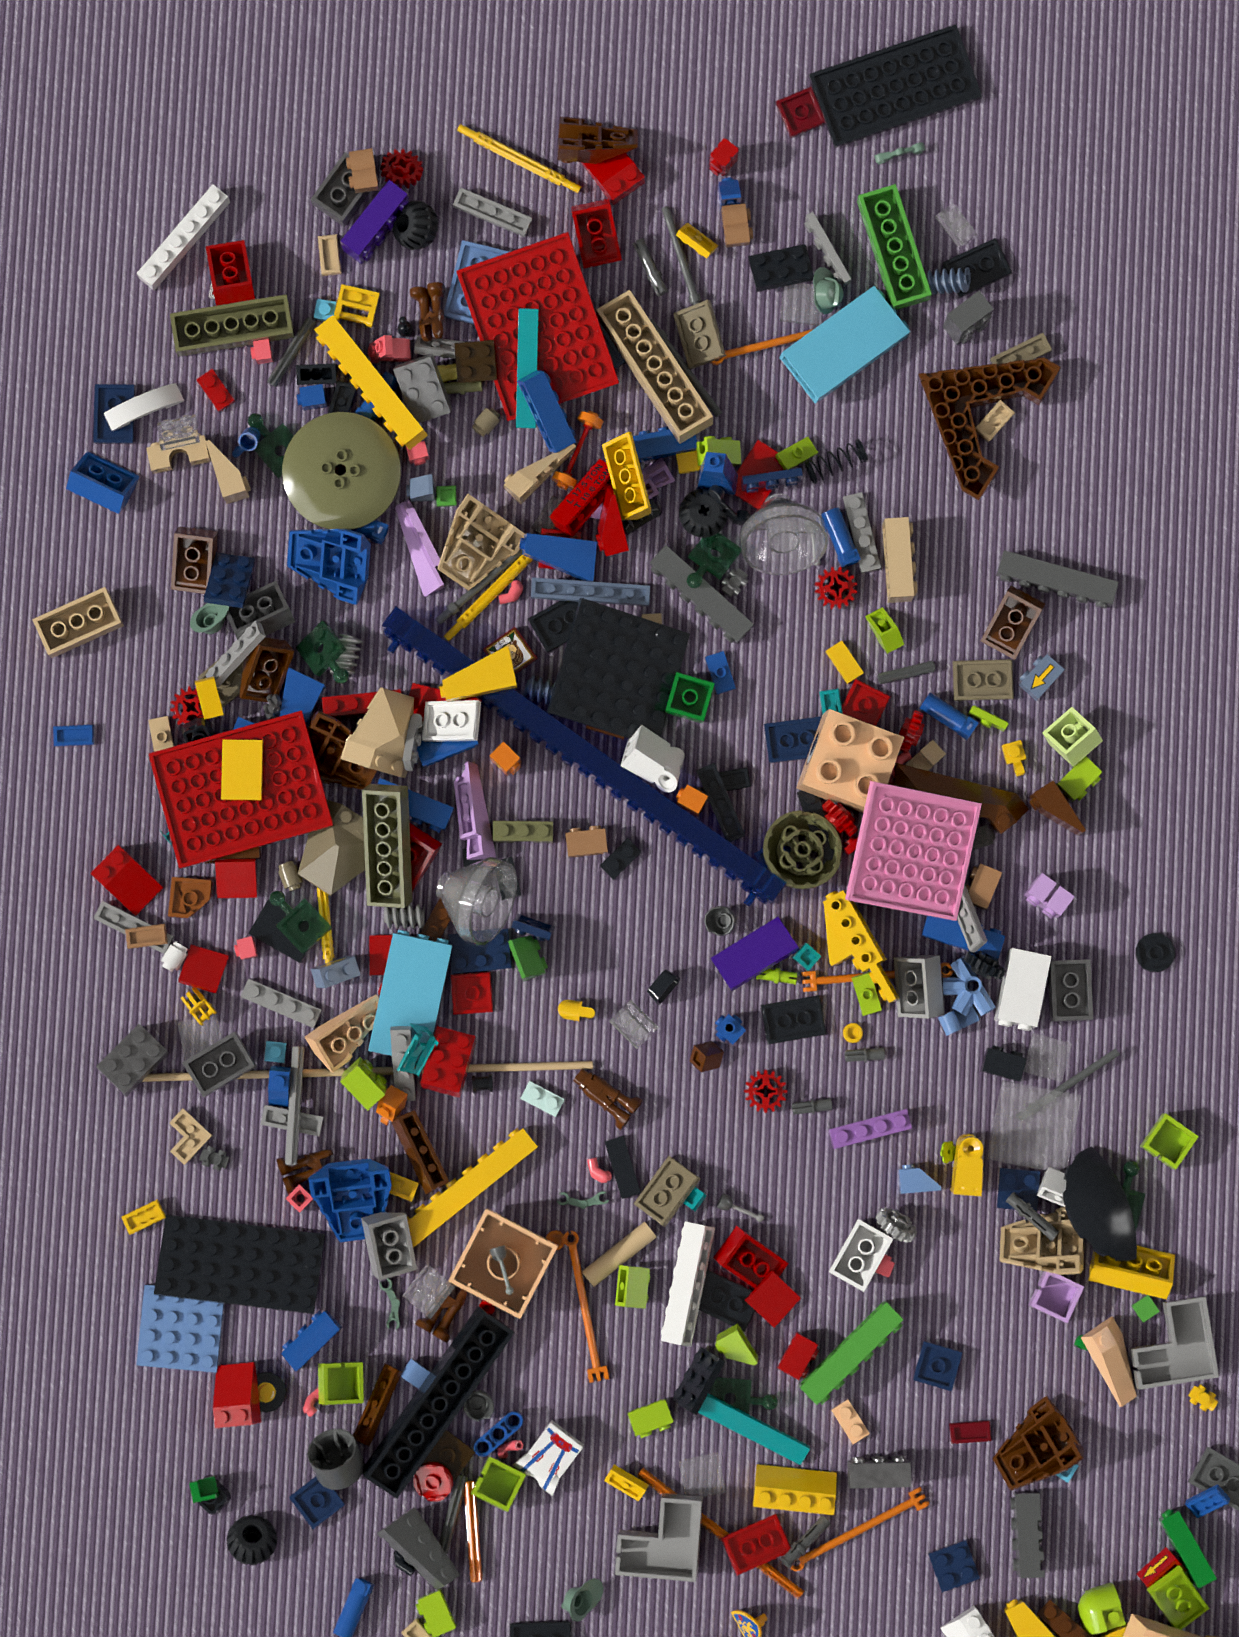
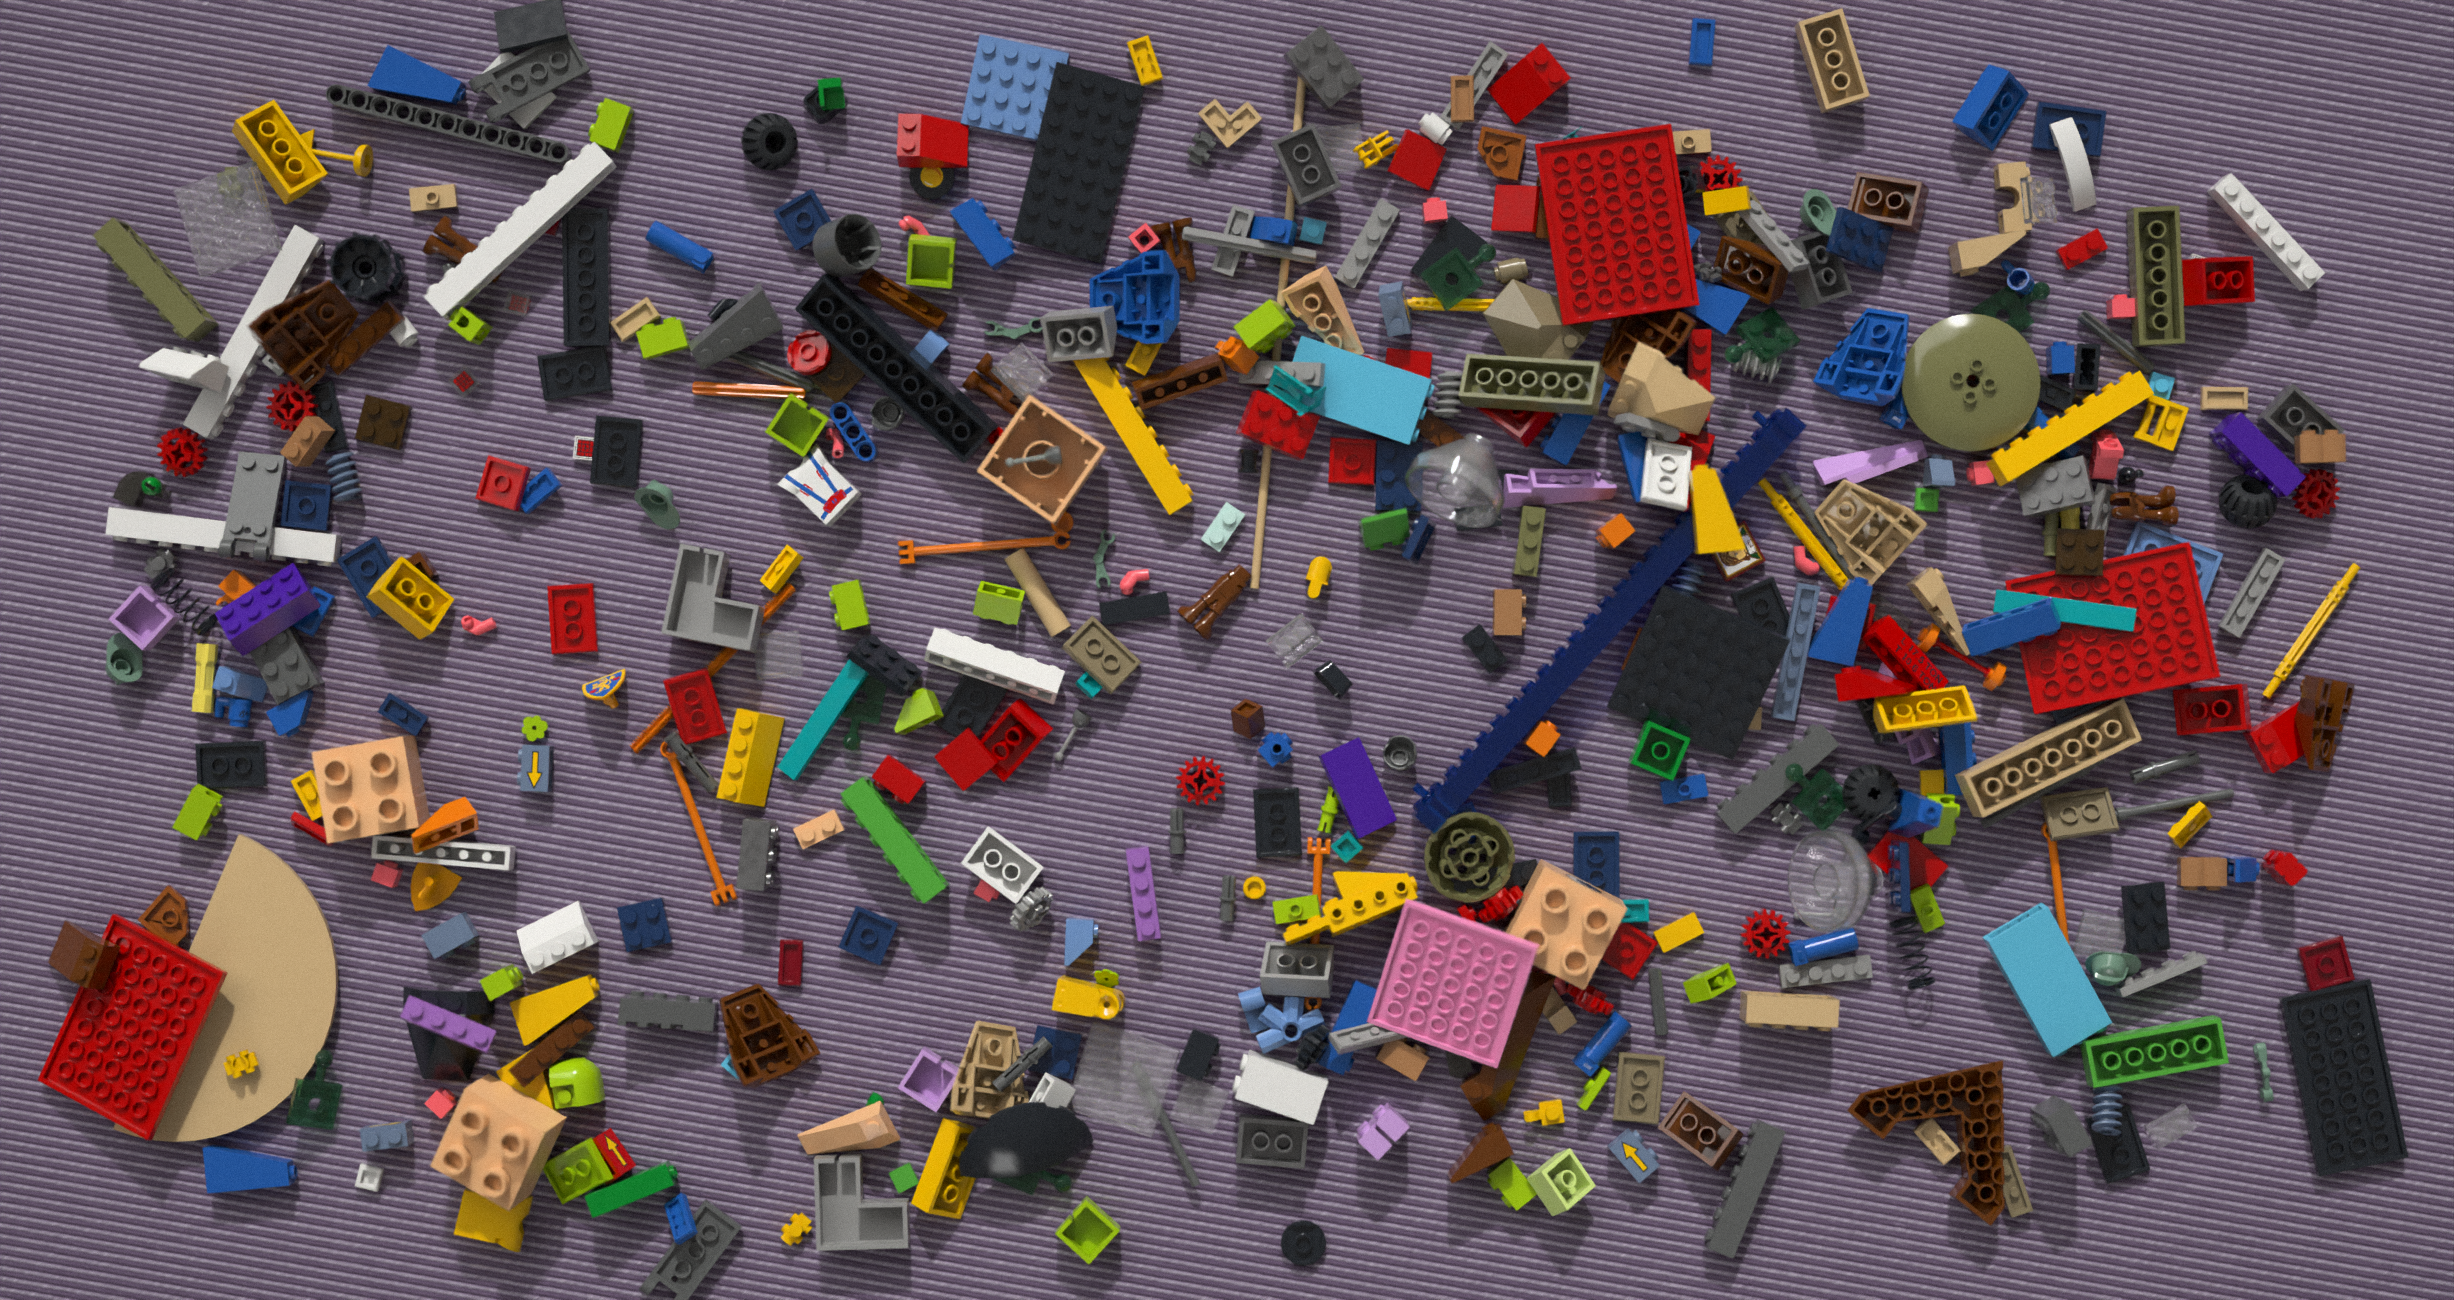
camera: 100 degrees right, 5 degrees up
(242, 769) = (1639, 228): yellow tile -> none
(486, 422) = (2007, 555): dark tan brick -> none
(653, 759) = (1593, 700): white piece -> none

